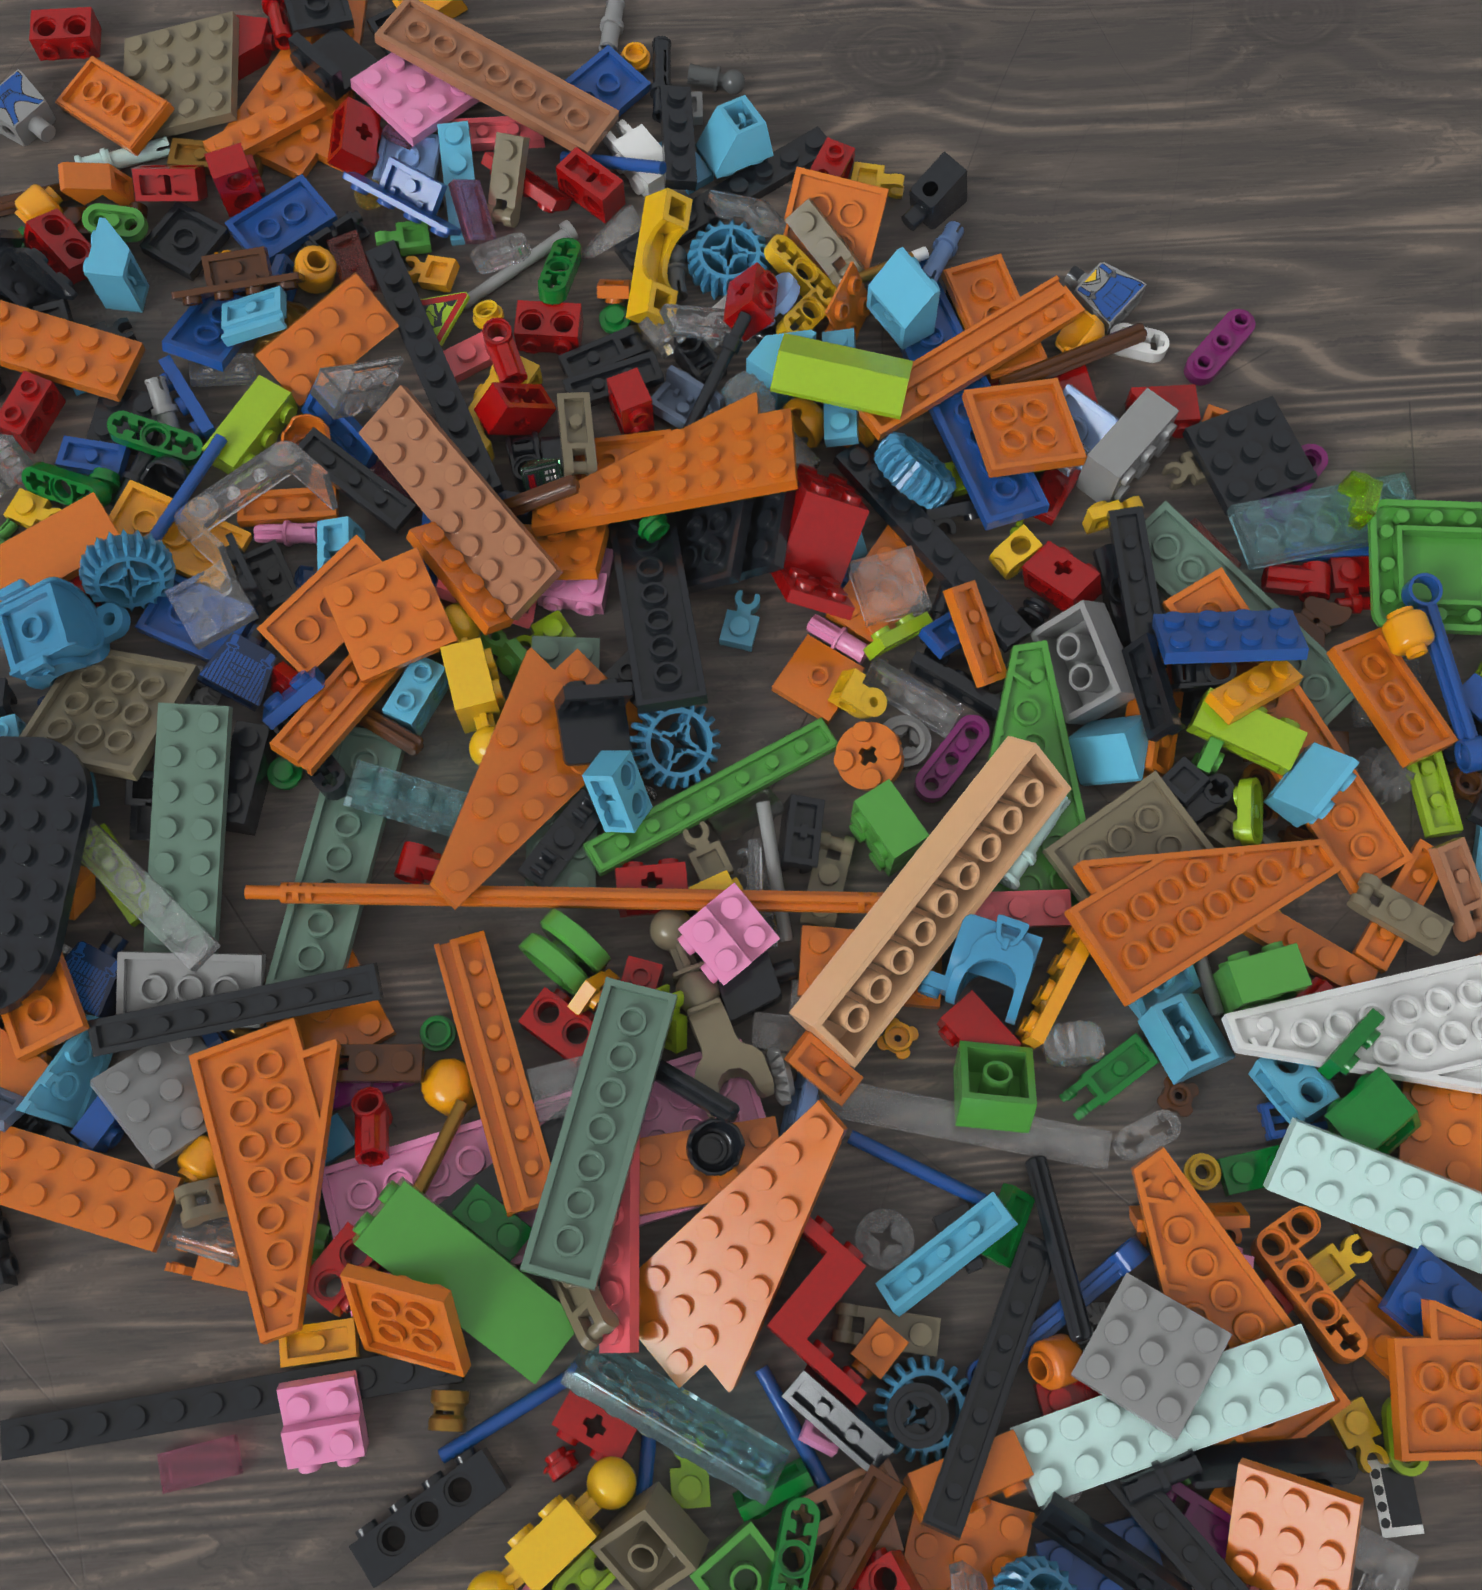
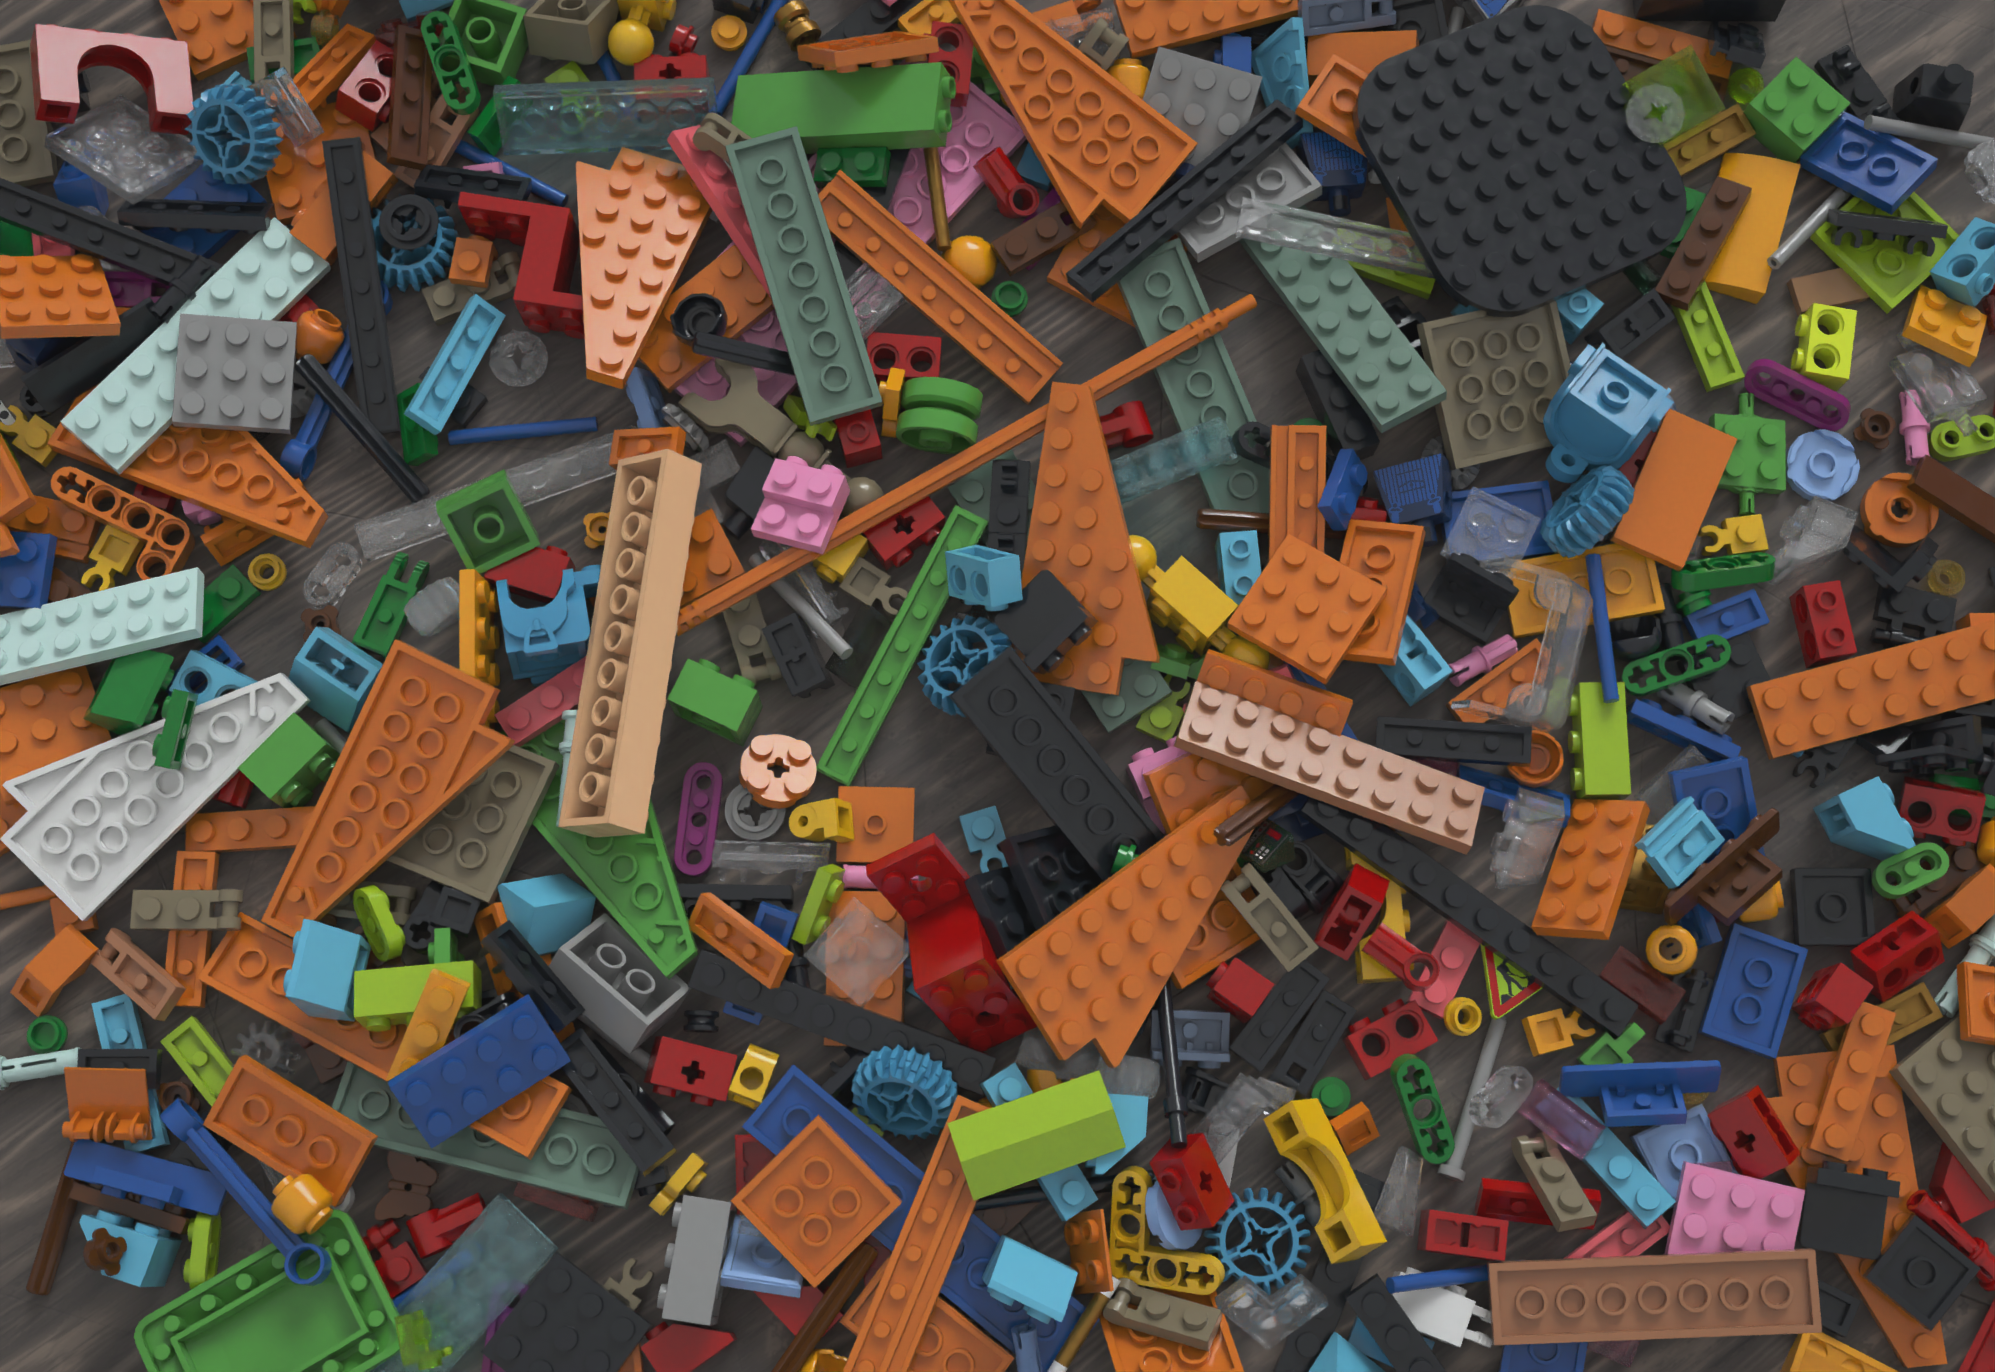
camera: 145 degrees right, 5 degrees up
(513, 1446) = (729, 33): none -> light orange plate

